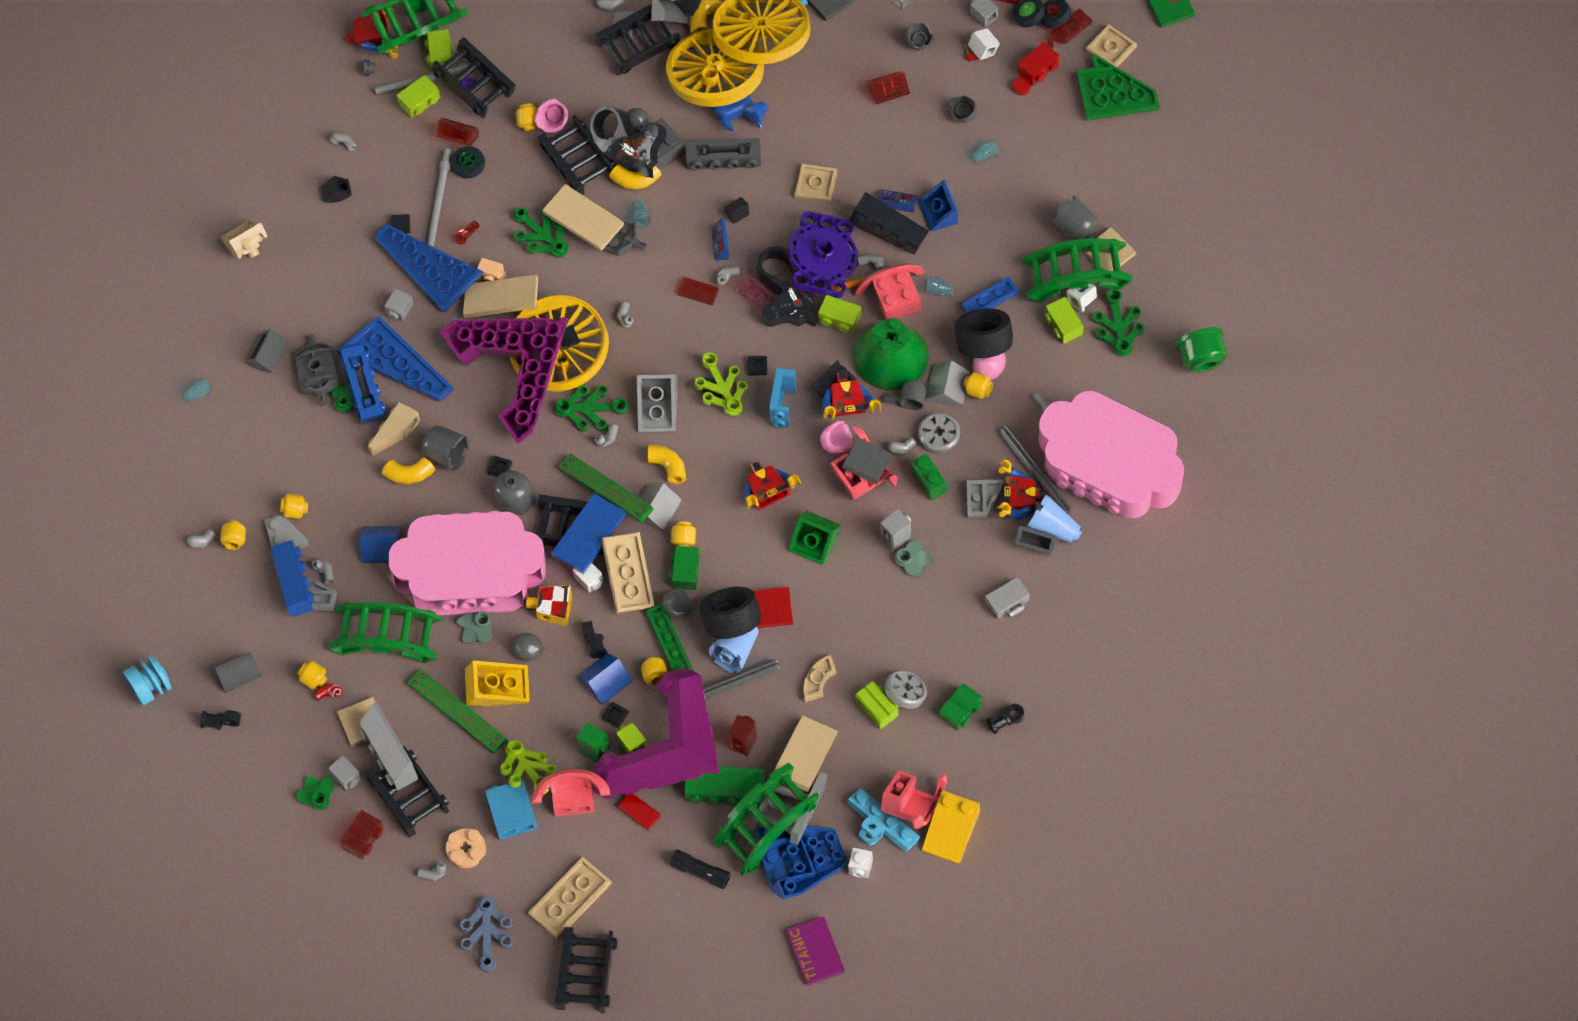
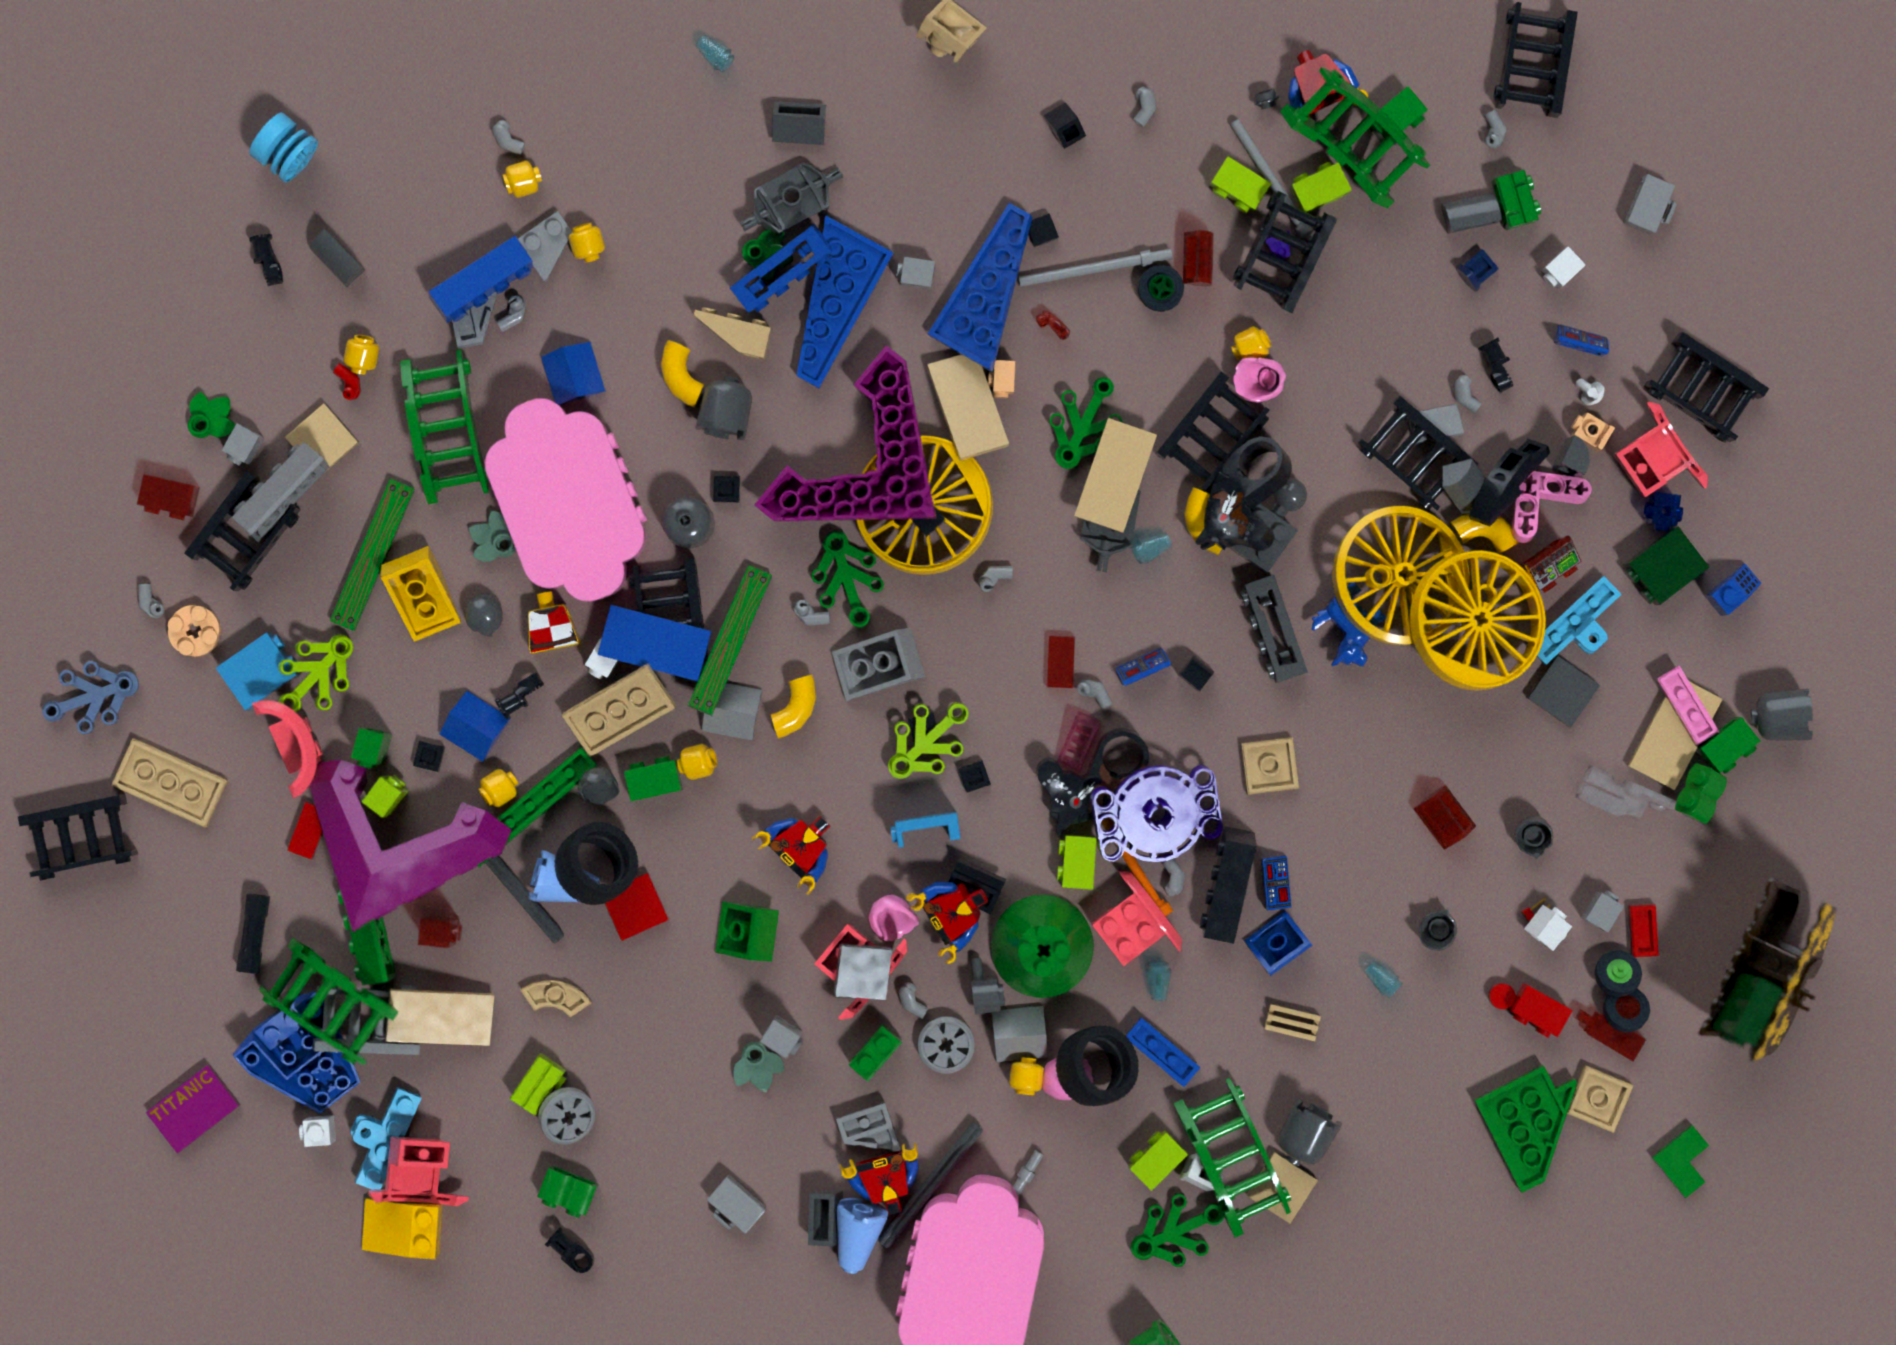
camera: 65 degrees right, 25 degrees up
(1004, 203) = (1313, 1027): none -> tan tile

